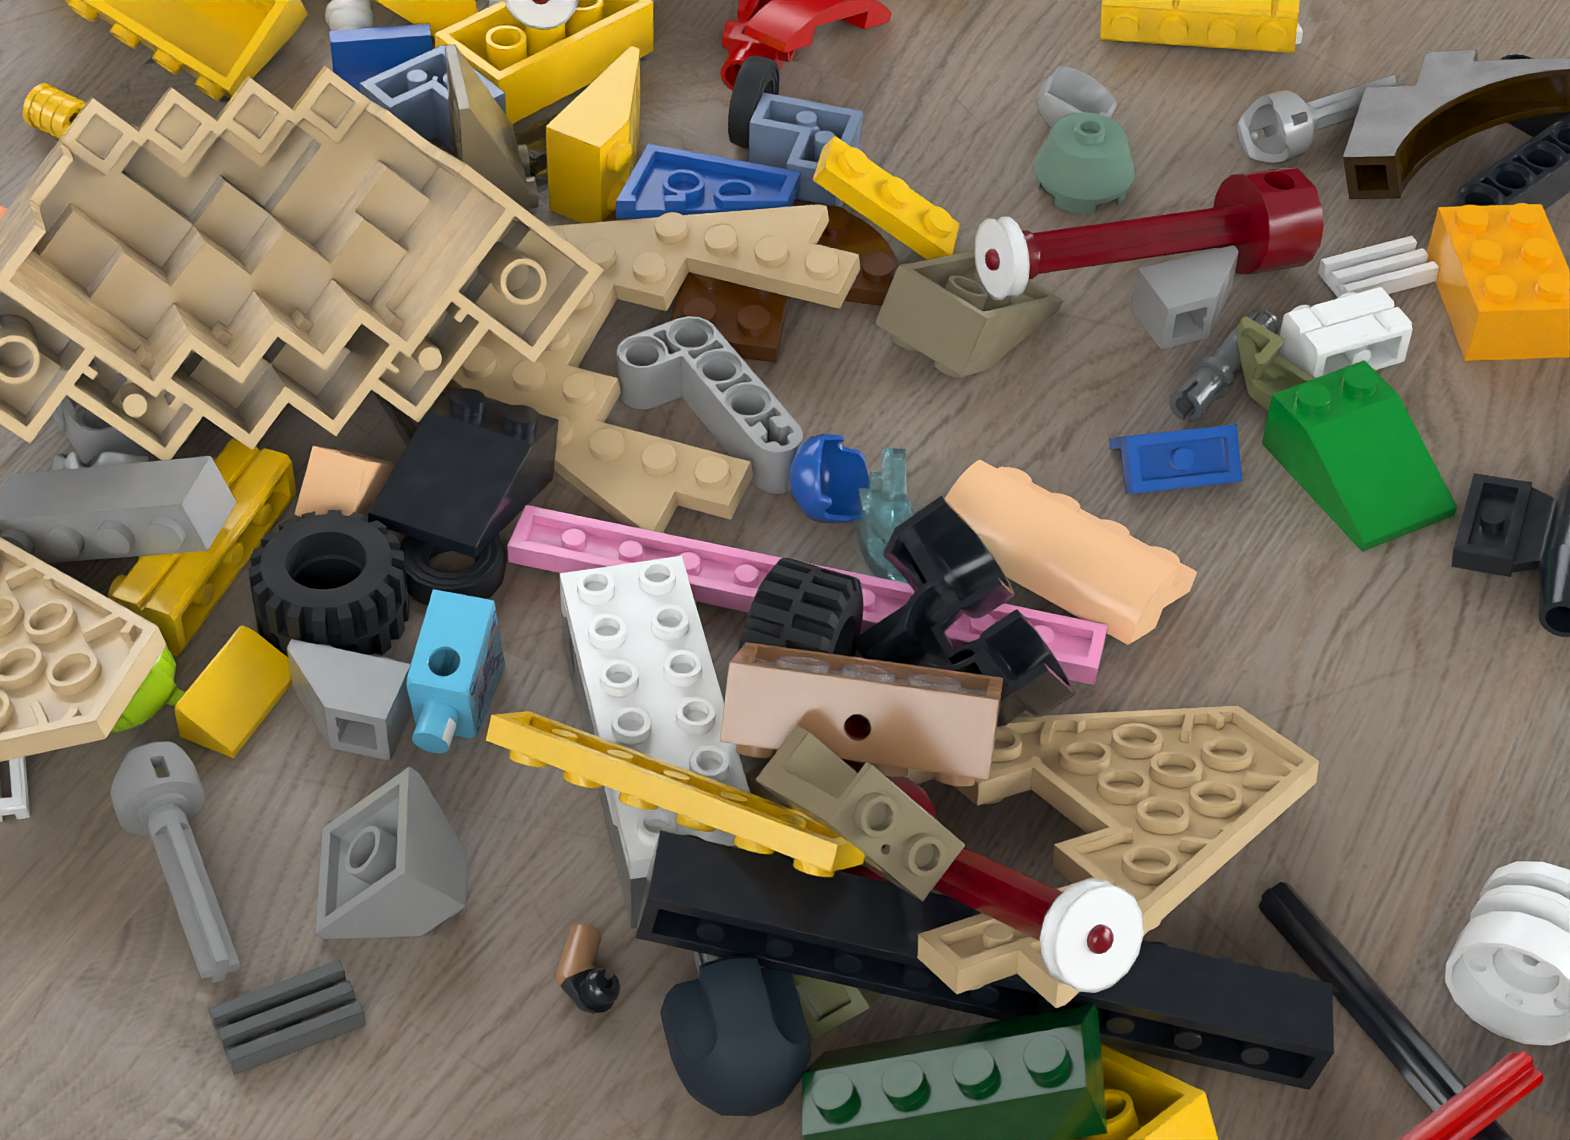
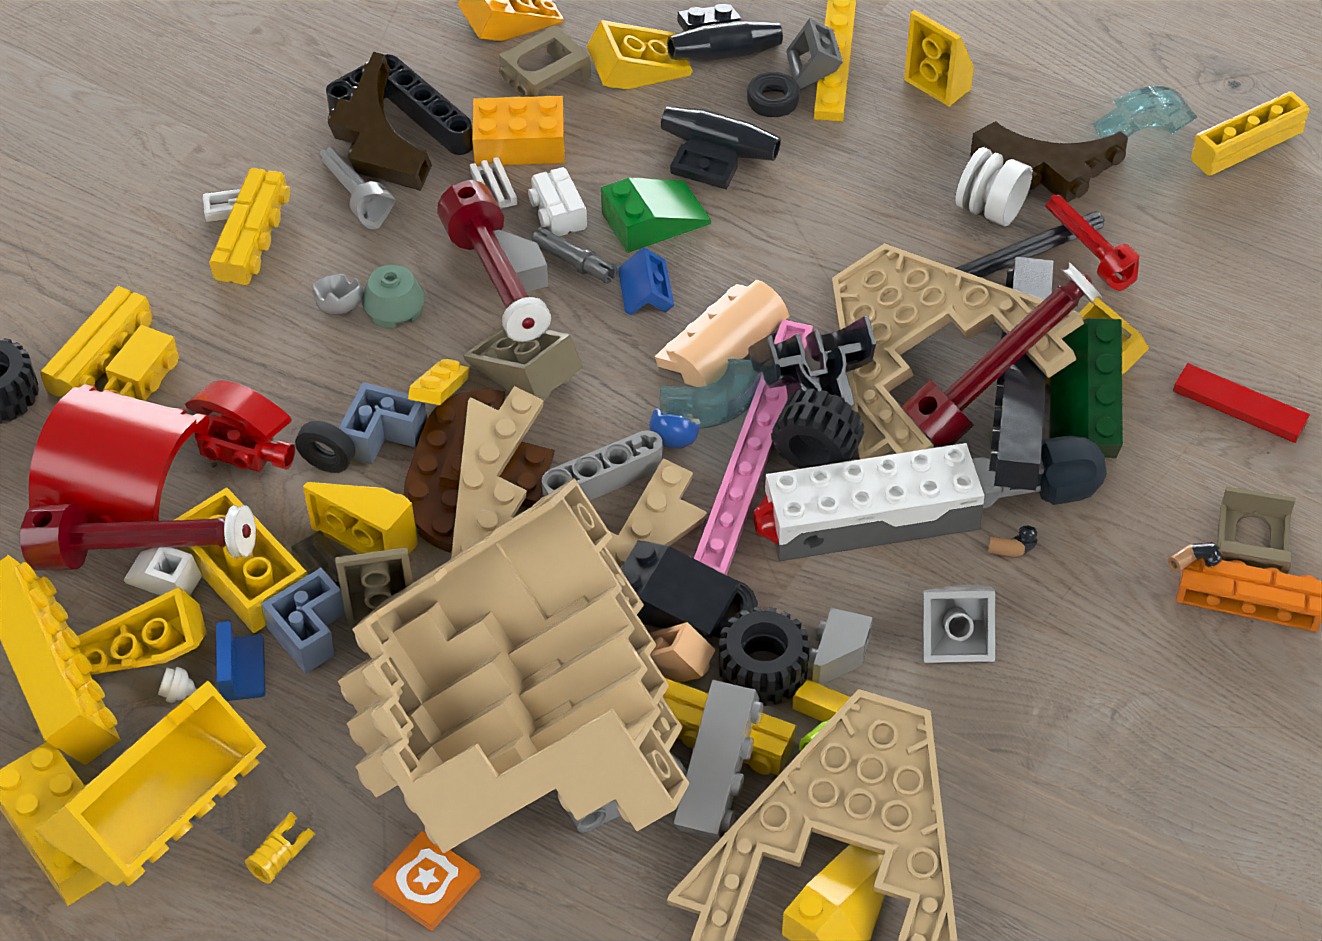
camera: 85 degrees left, 5 degrees up
(163, 810) = (975, 712): light grey piece -> none
(282, 1008) = (1039, 645): dark grey tile -> none
(454, 669) = (831, 585): medium azure torso -> none
(653, 783) = (960, 462): yellow plate -> none
(702, 184) = (428, 465): blue wing -> none
(863, 811) = (967, 406): dark tan panel -> none
(864, 711) = (897, 388): brick -> none
(1262, 366) = (590, 234): olive slope -> none

